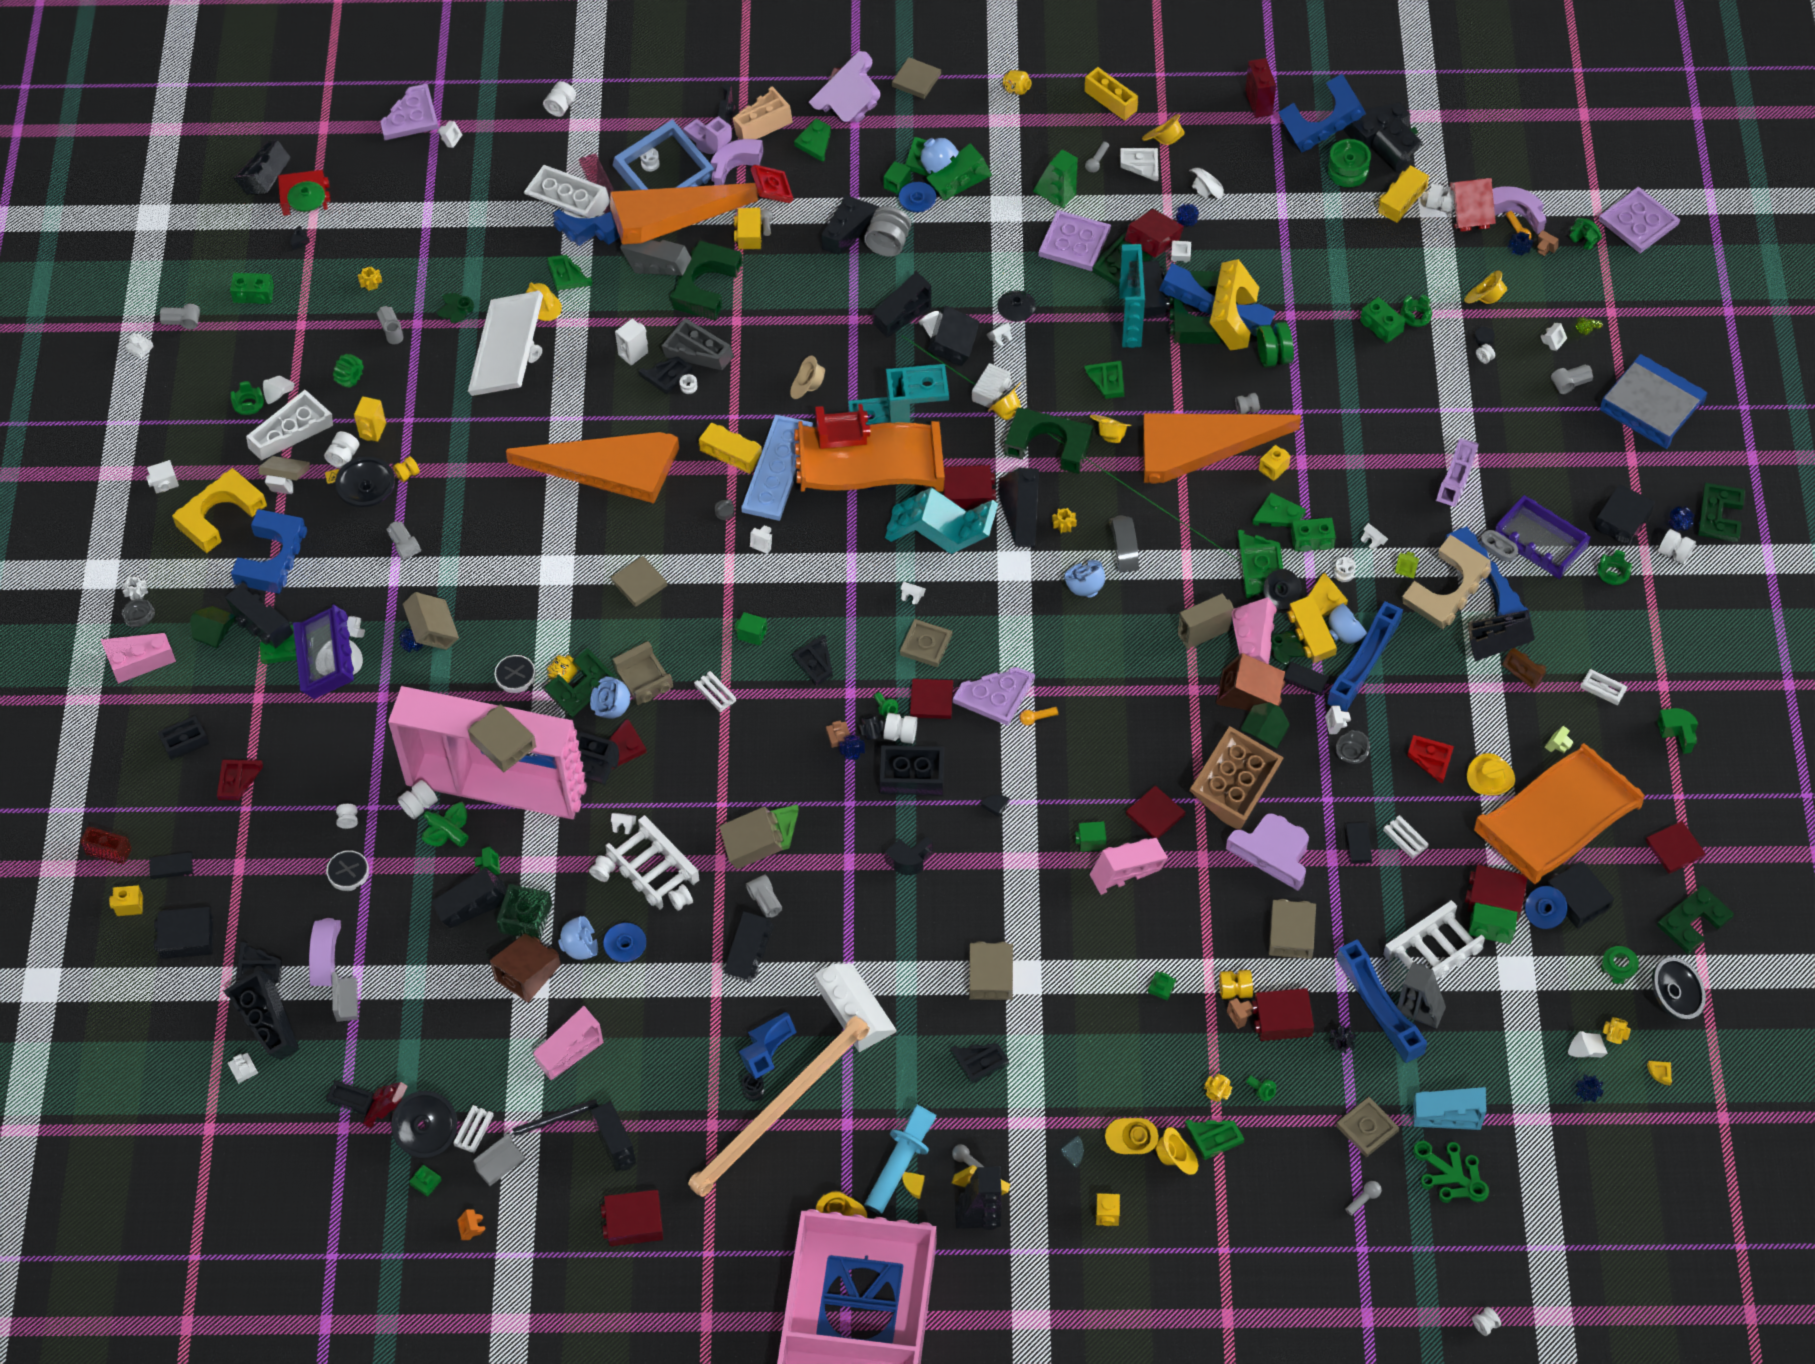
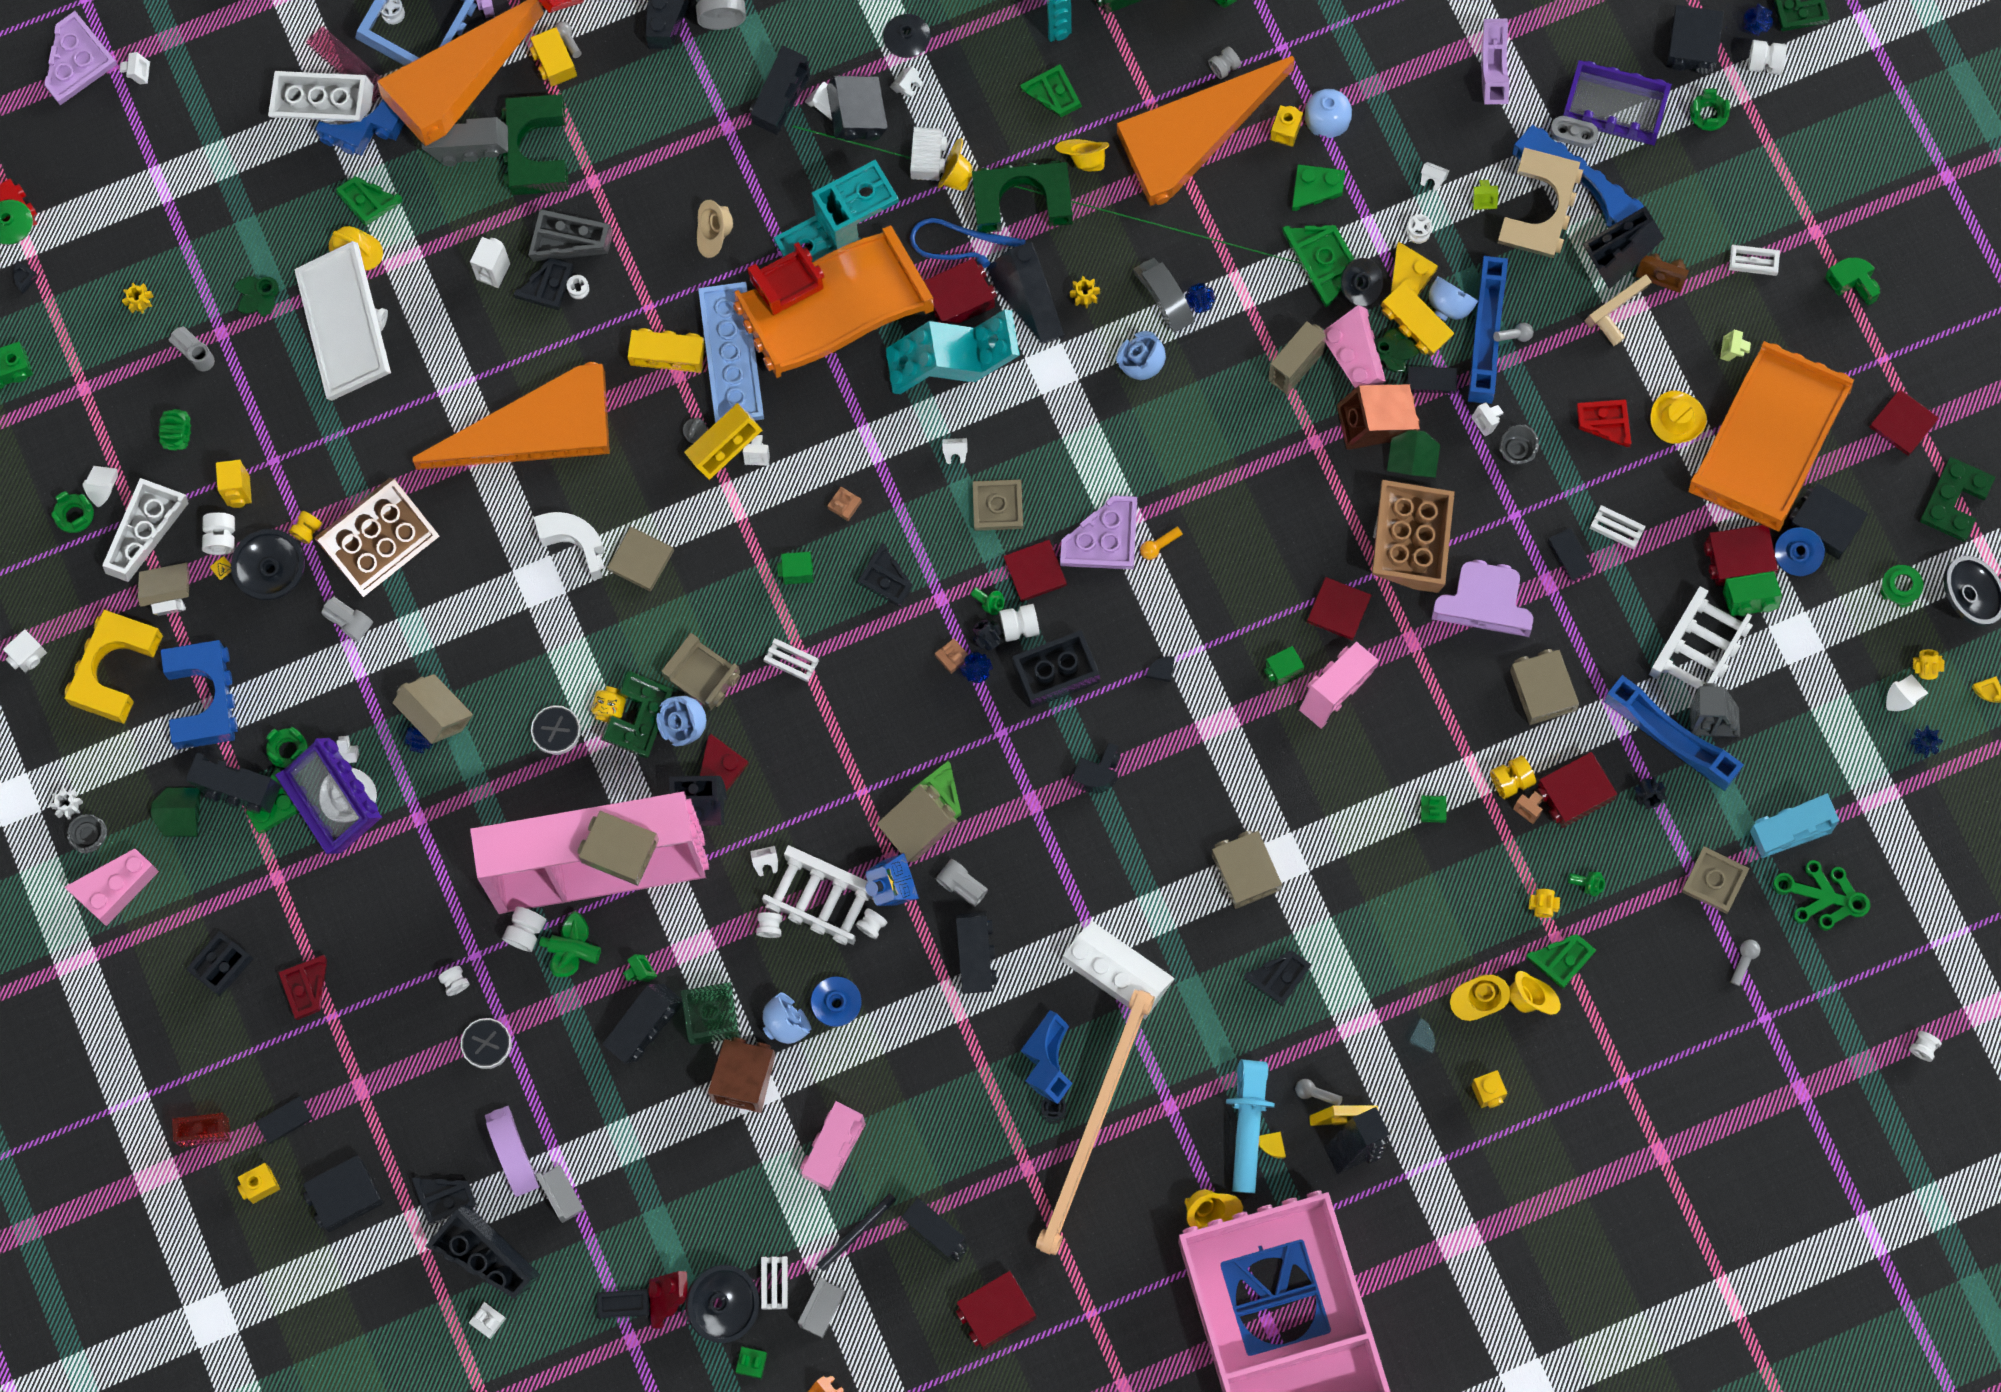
camera: 20 degrees left, 15 degrees up
(309, 603) = (277, 738): none -> green piece
(454, 493) = (376, 536): none -> medium nougat slope
(594, 538) = (566, 527): none -> white arch
(708, 871) = (891, 882): none -> blue torso
(739, 520) = (723, 441): none -> yellow brick
(810, 599) = (844, 503): none -> nougat tile
(998, 474) = (981, 259): none -> blue piece
(1150, 555) = (1200, 297): none -> clear blue gear
(1311, 466) = (1328, 113): none -> light blue cylinder
(1313, 534) = (1367, 200): green brick -> none
(1393, 671) = (1522, 332): none -> light grey bar
(1462, 679) = (1601, 315): none -> tan piece

